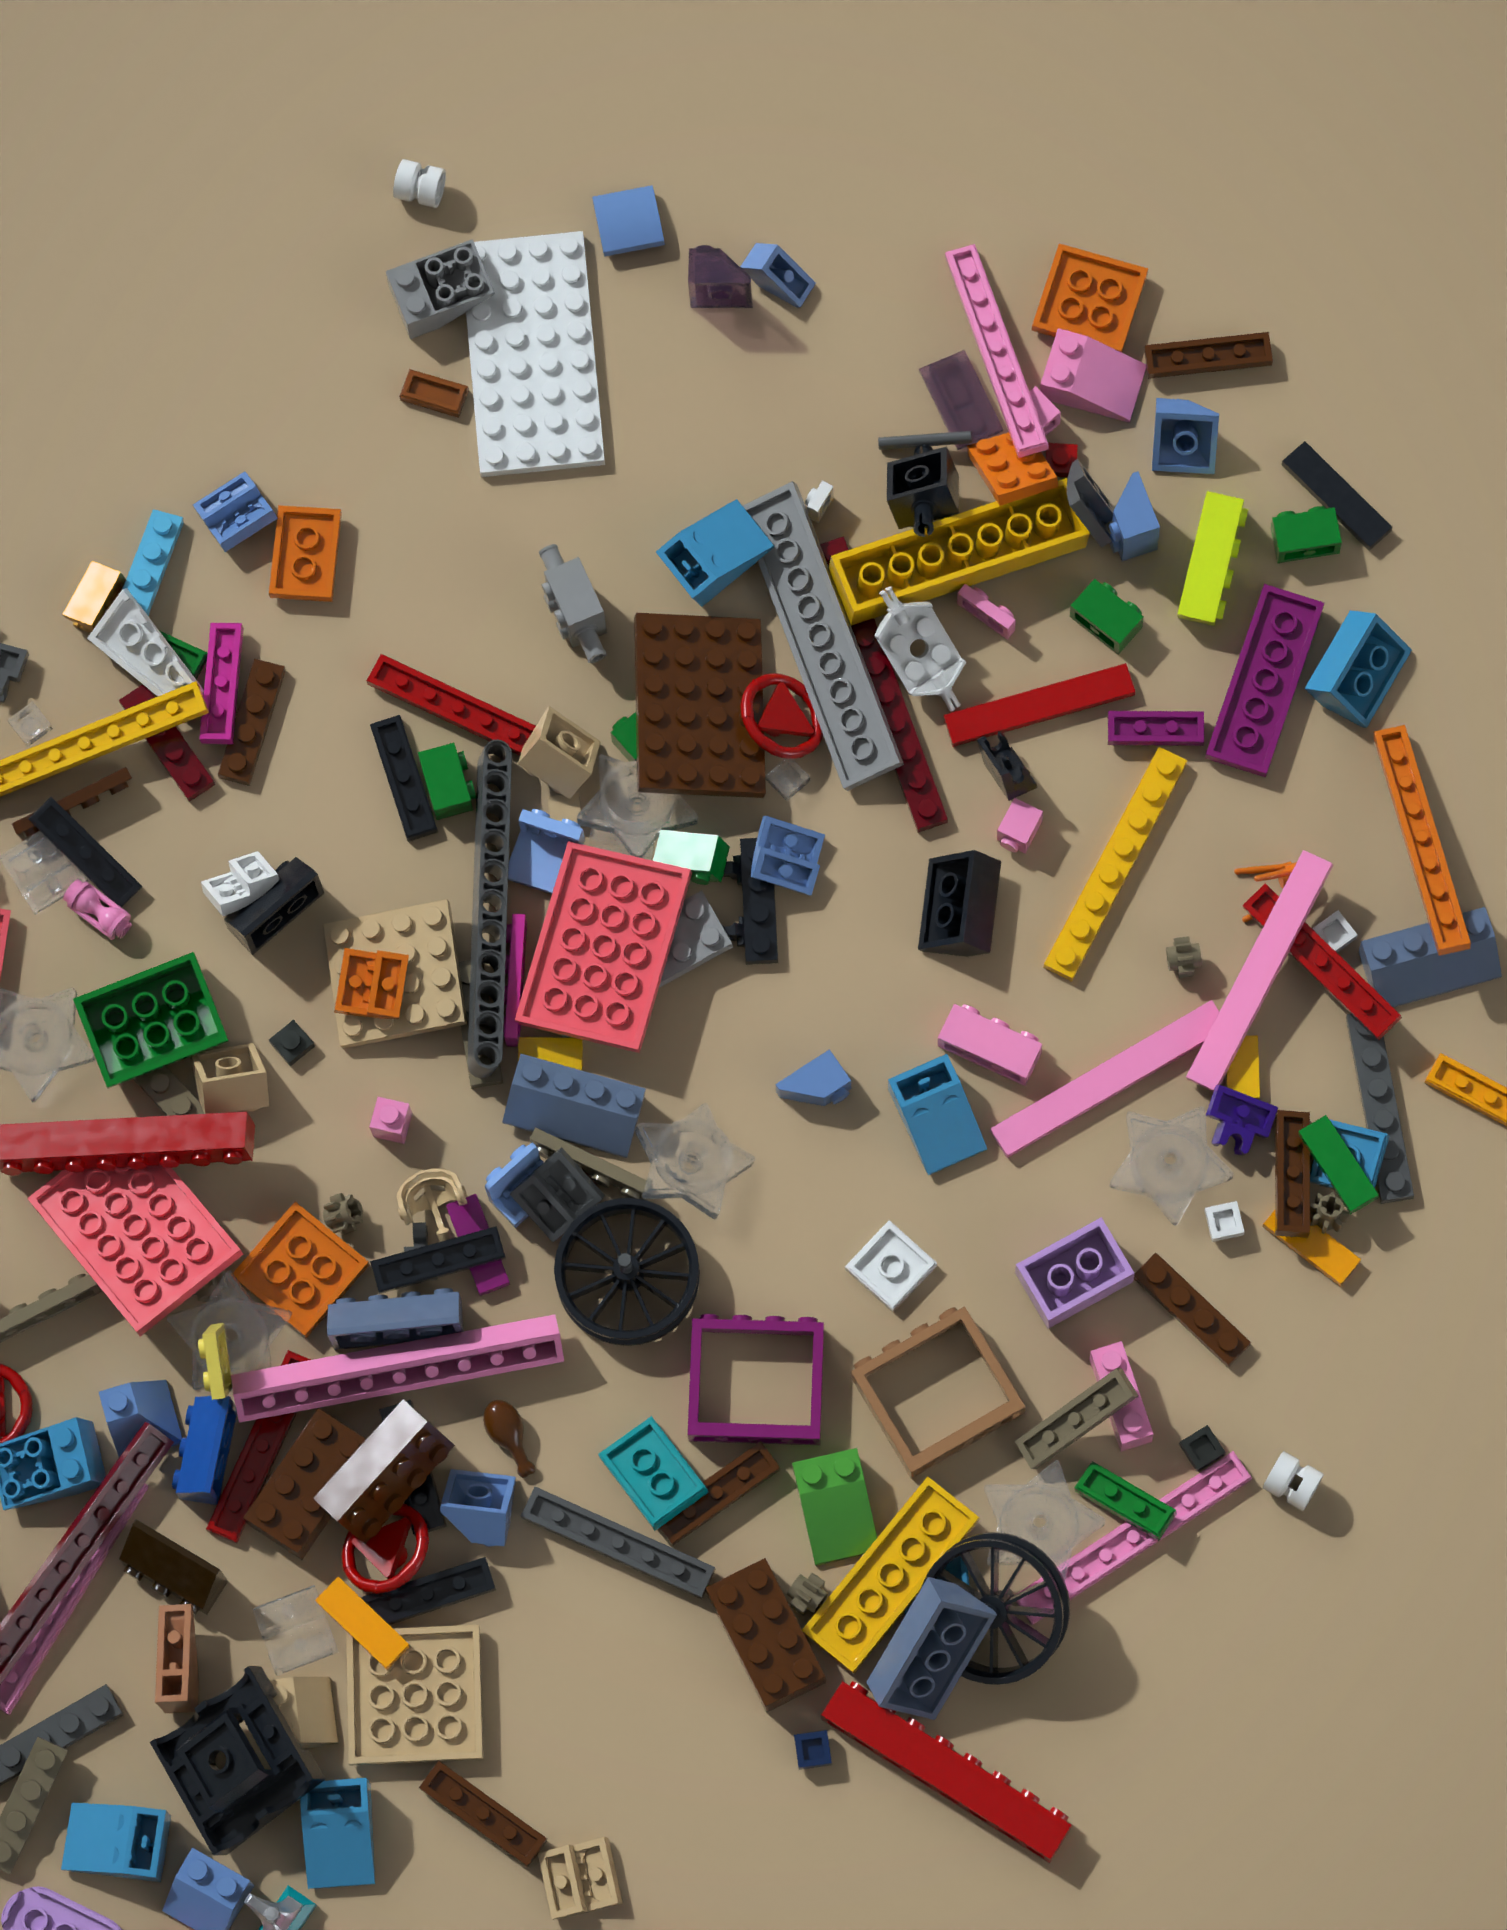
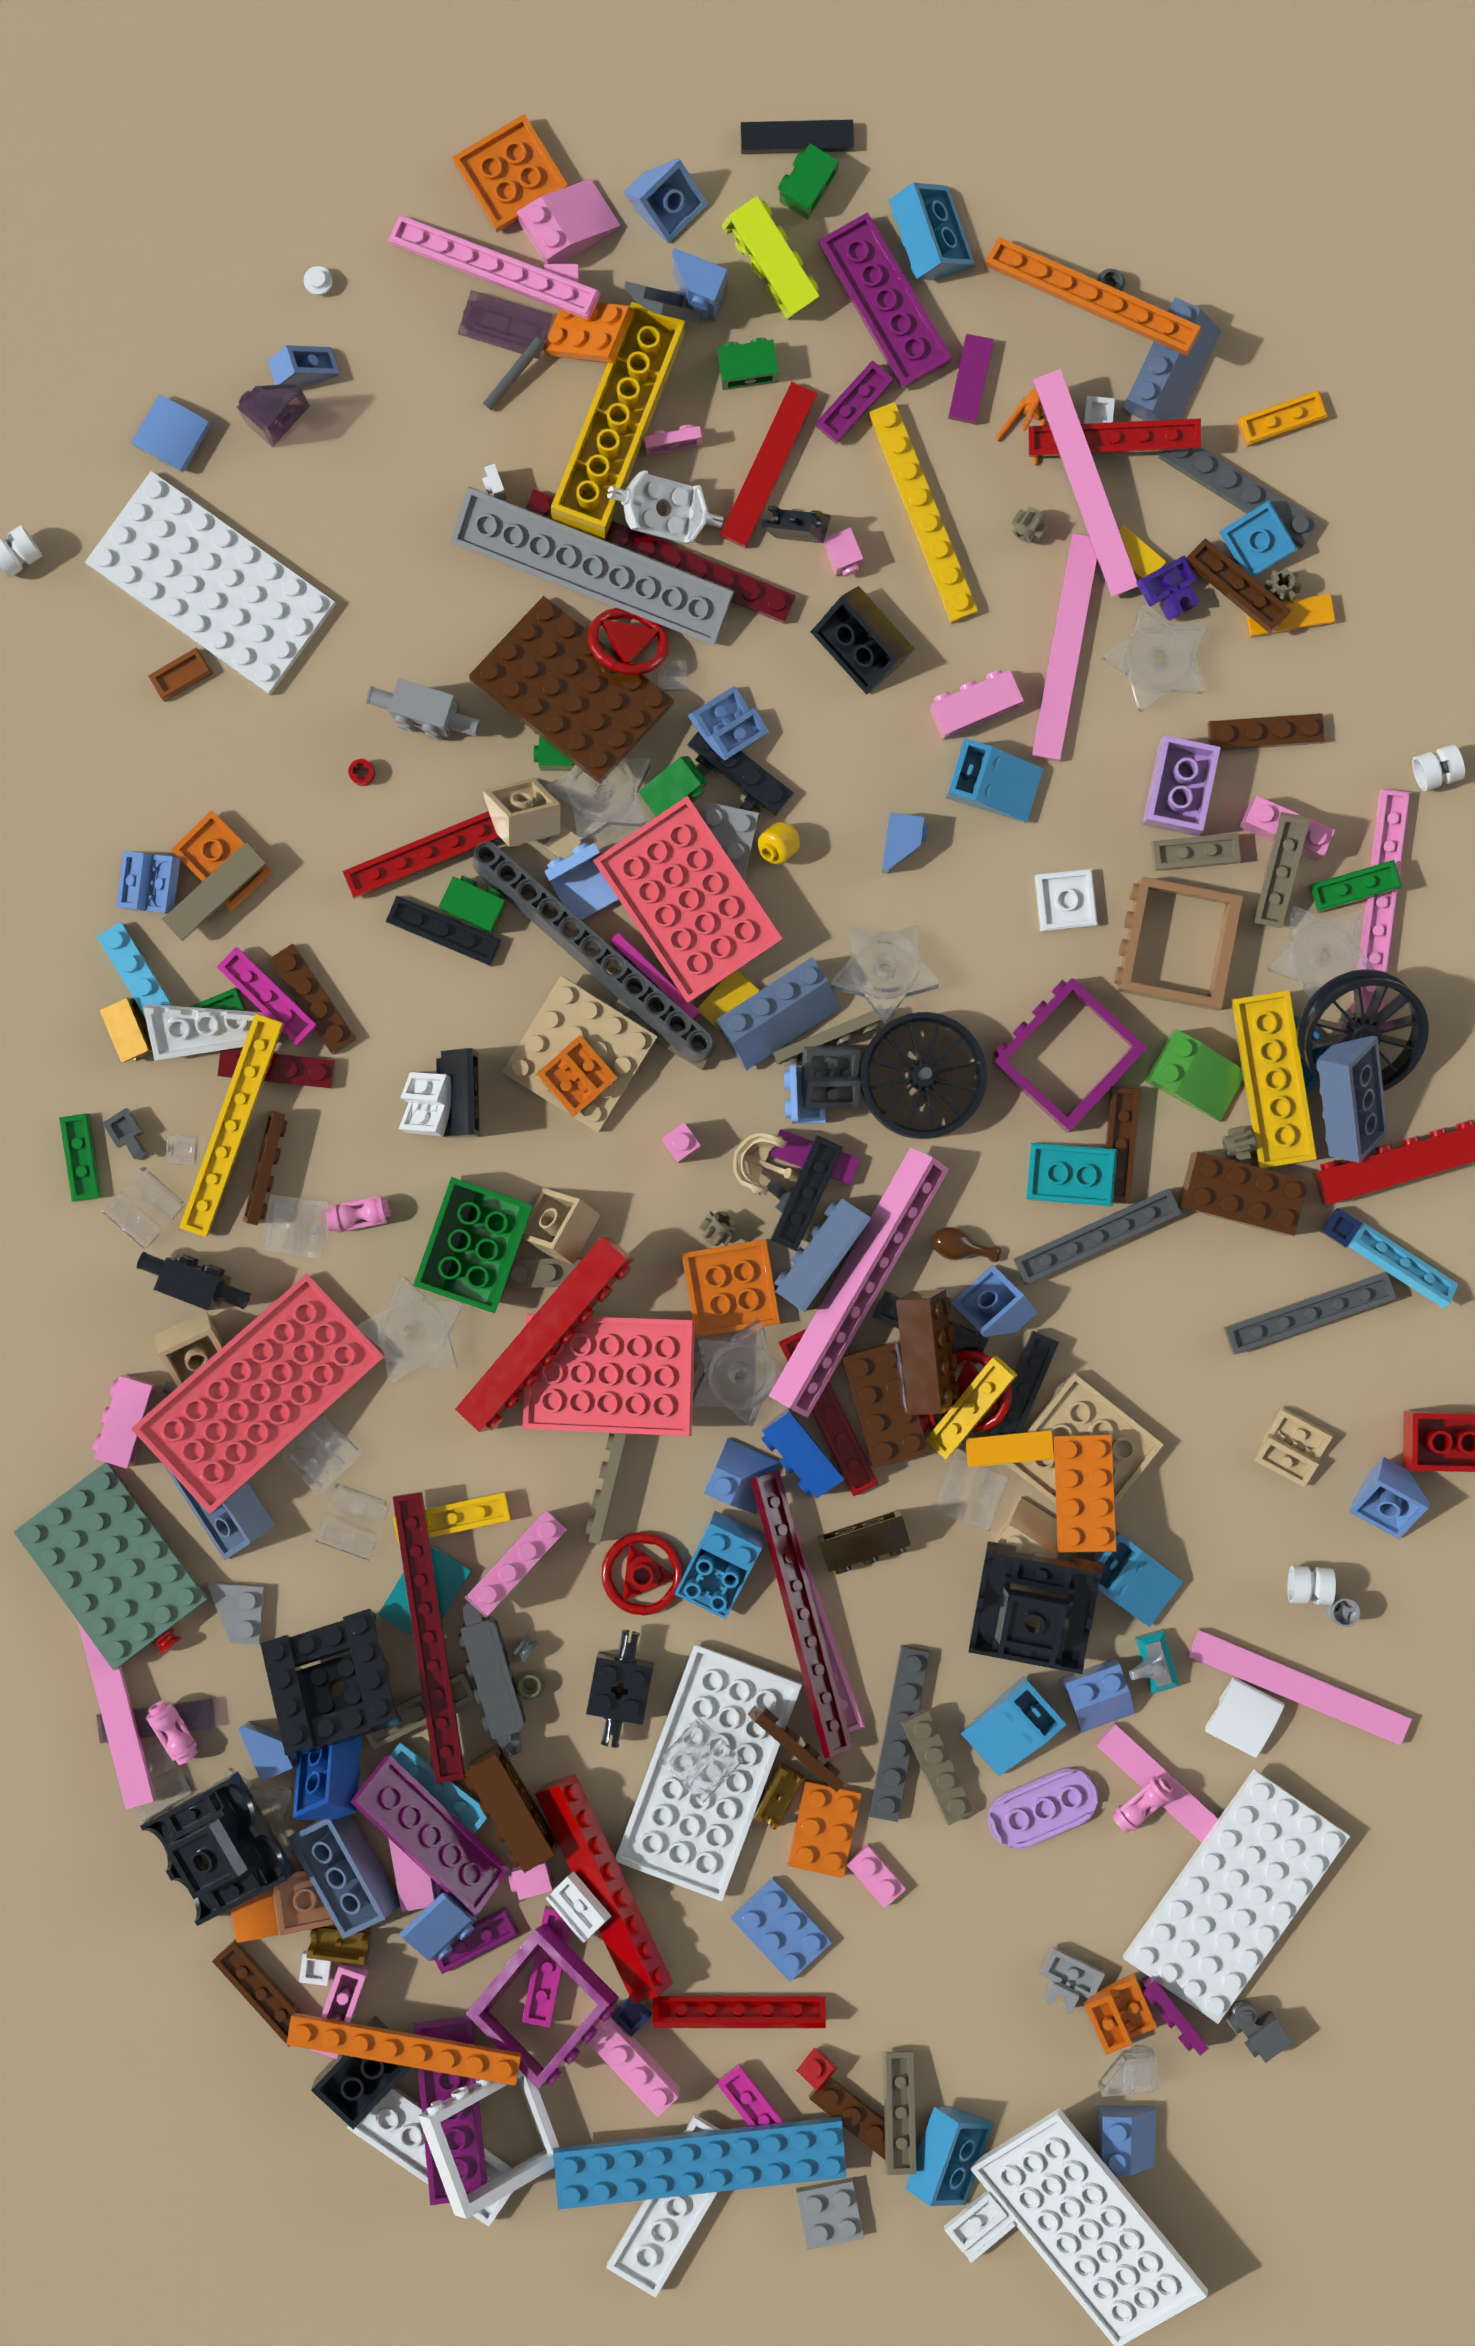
camera: 55 degrees left, 15 degrees up
(85, 852) = (310, 1189): black tile -> none
(176, 1660) = (928, 1589): nougat slope -> none
(215, 1351) = (753, 1398): light yellow plate -> none
(272, 567) = (214, 891): none -> dark tan tile
(291, 1043) = (566, 1162): pearl dark grey plate -> none
(327, 1531) = (927, 1421): none -> red bush
(368, 1554) = (971, 1407): none -> yellow plate
(376, 1719) = (1085, 1493): none -> orange plate
(439, 287) = (106, 604): light grey slope -> none
(482, 591) = (355, 778): none -> red bush
(483, 1813) = (1199, 1474): reddish brown plate -> none
(712, 1787) = (1309, 1313): none -> dark grey plate
(715, 551) = (470, 582): dark azure slope -> none
(721, 982) = (779, 843): none -> yellow head
(826, 1833) = (1403, 1265): none -> medium azure plate
(860, 227) = (317, 280): none -> white plate
(923, 489) = (553, 404): black brick -> none
(1031, 1338) = (1196, 851): none -> dark tan plate
(1061, 457) = (610, 292): red plate -> none
(1202, 1448) = (1364, 806): pearl dark grey plate -> none
(1208, 355) = (622, 130): reddish brown plate -> none
(1224, 1221) = (1228, 658): white plate -> none
(1265, 806) = (970, 379): none -> magenta tile
(1338, 1164) = (1261, 550): green tile -> none
(1458, 841) = (1112, 275): none -> dark grey plate

